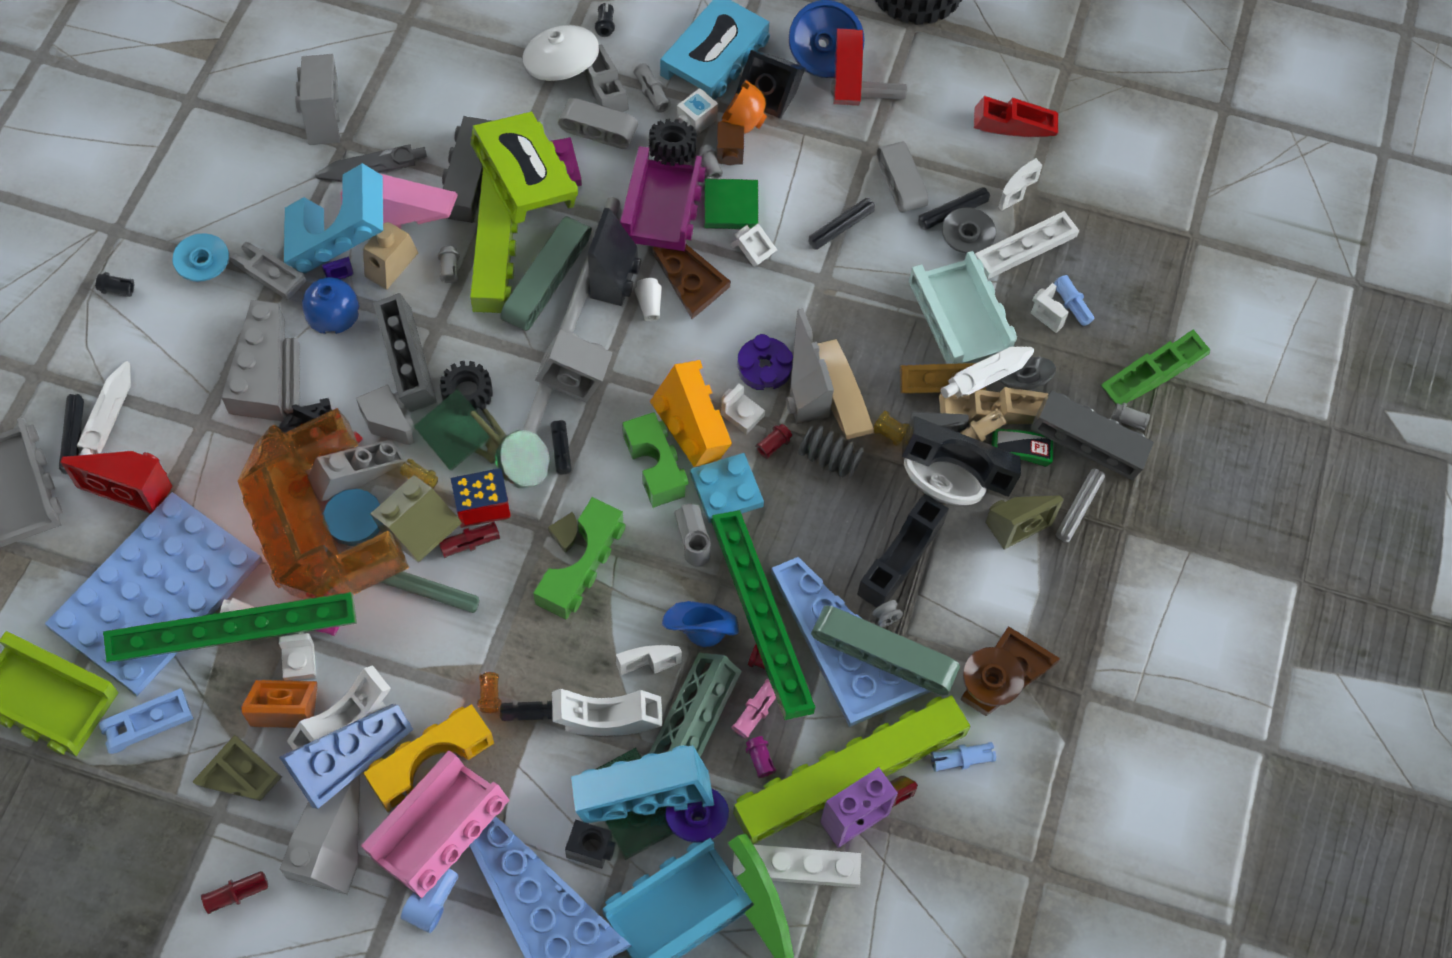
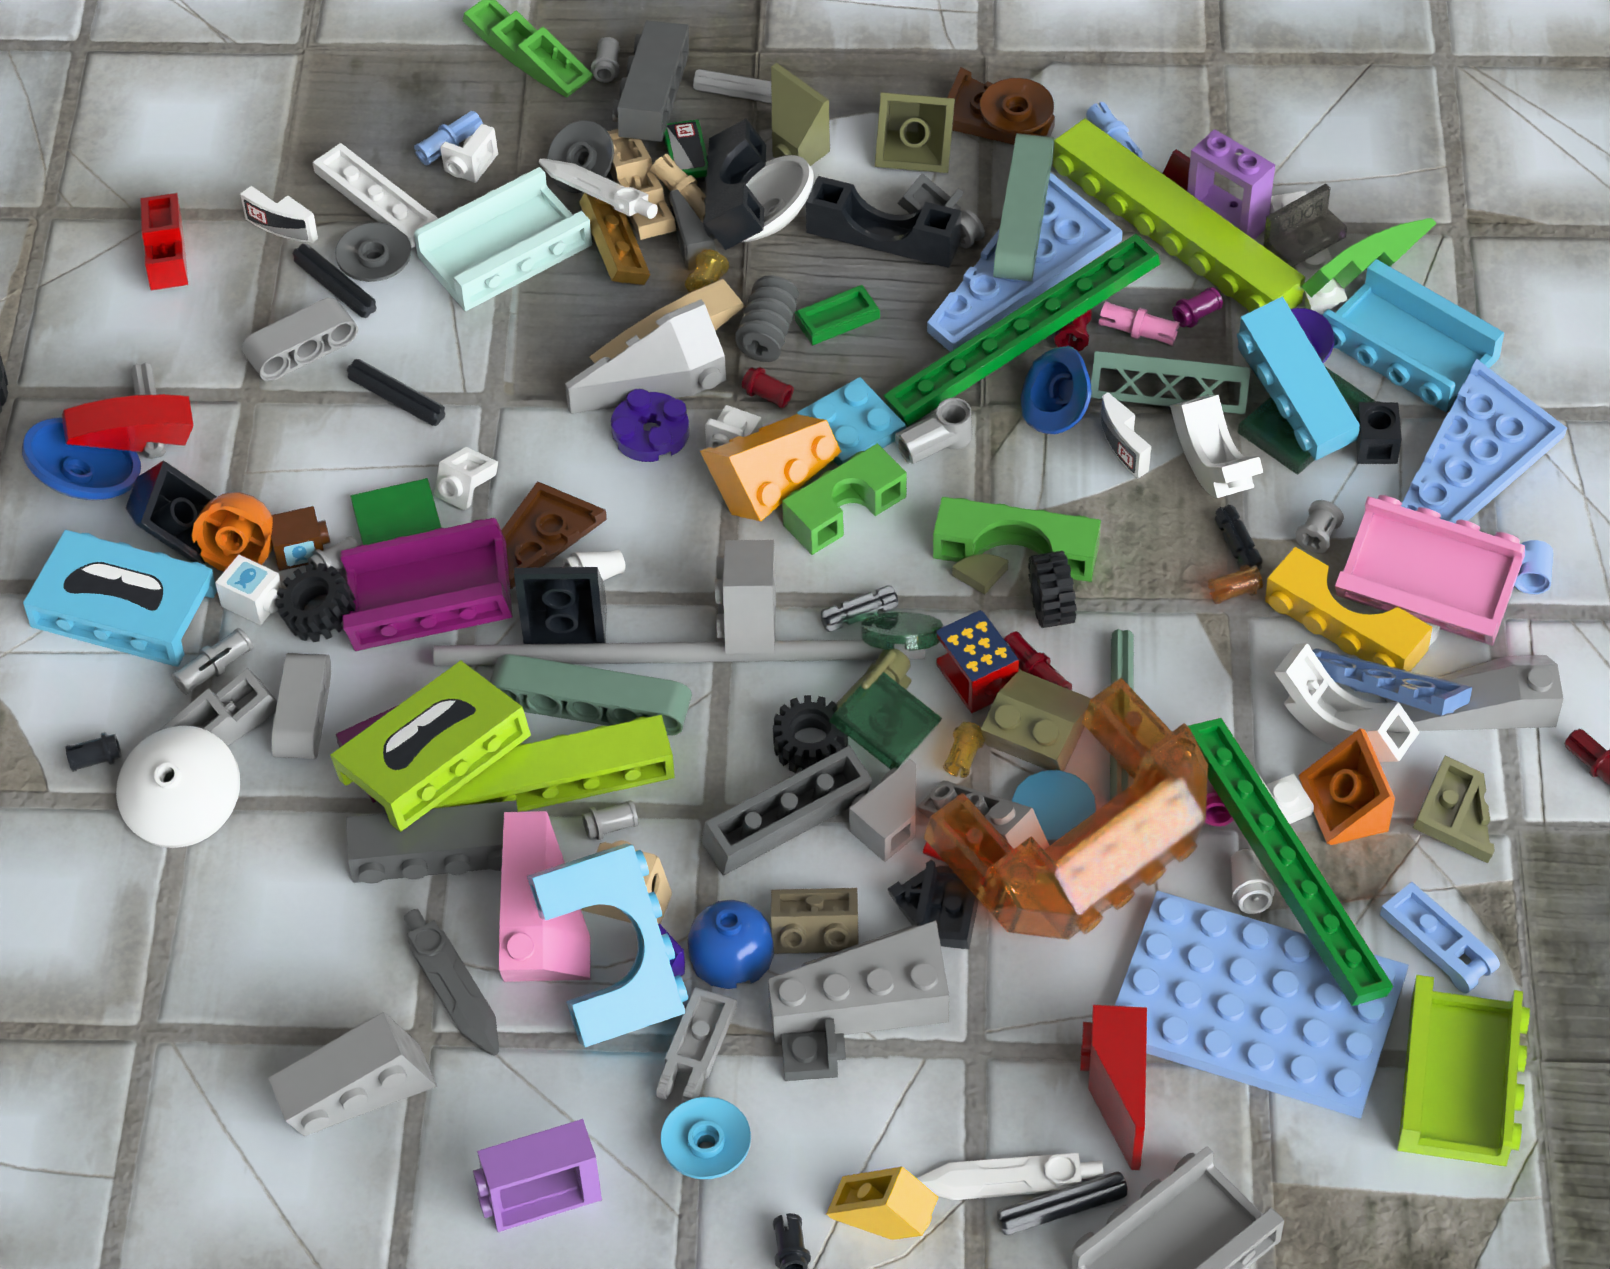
camera: 100 degrees left, 10 degrees down
(112, 335) = (884, 1203): none -> yellow slope
(206, 163) = (537, 1176): none -> medium lavender window
(231, 329) = (813, 1053): none -> dark grey bracket
(328, 354) = (814, 920): none -> dark tan bracket
(517, 768) = (1319, 526): none -> light grey bush
(518, 559) = (1052, 589): none -> black tyre
(801, 855) = (1303, 227): none -> clear smoke panel
(832, 507) = (837, 315): none -> green tile
(920, 595) = (924, 191): none -> dark grey bracket
(1000, 601) = (914, 132): none -> olive slope

